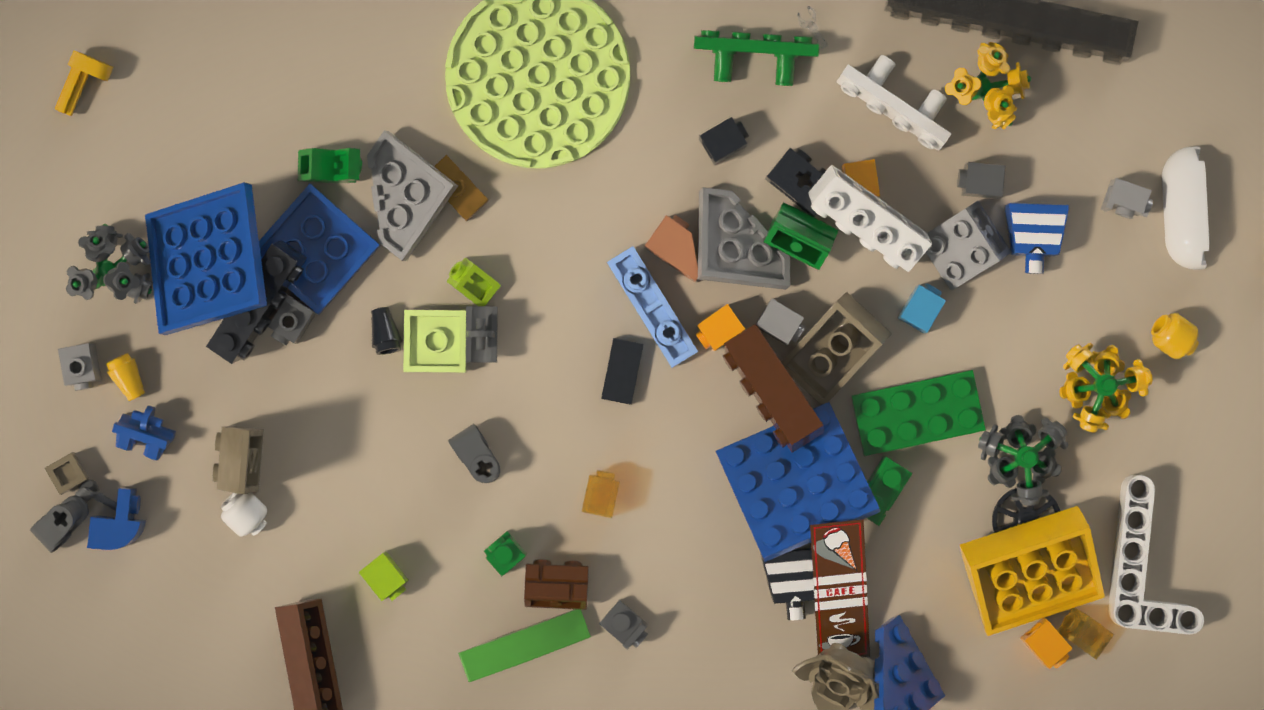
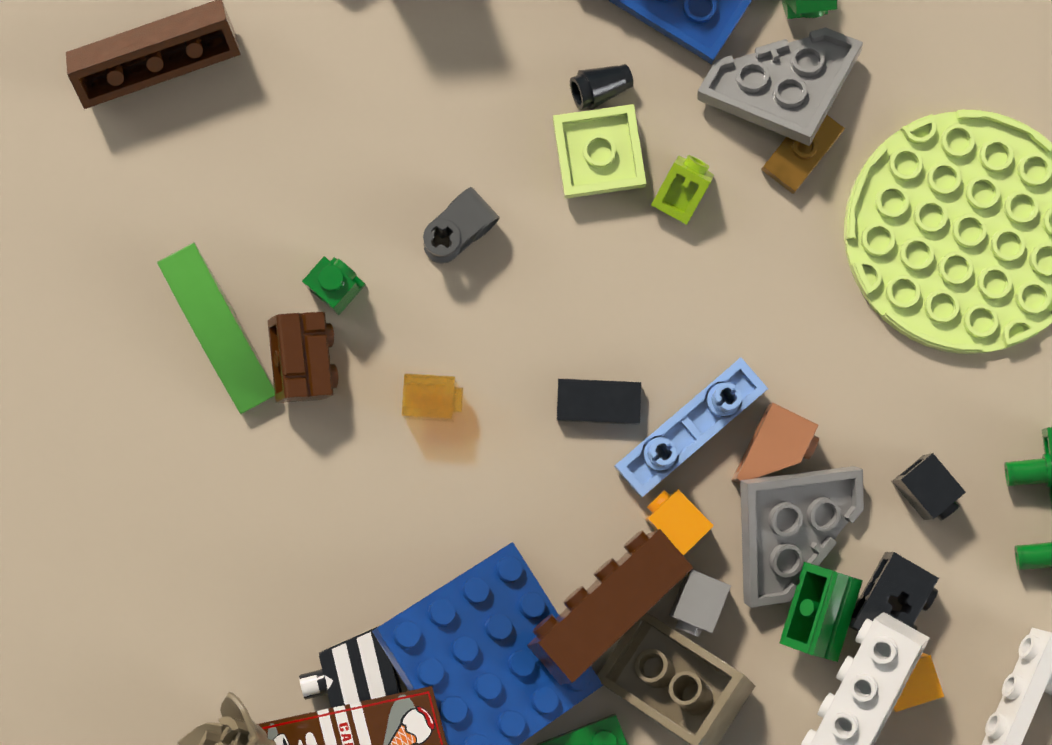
camera: 75 degrees right, 5 degrees down
(384, 577) = (281, 133): lime brick -> none
(481, 334) = (618, 208): dark grey hips -> none
(625, 625) = (262, 457): dark grey bracket -> none

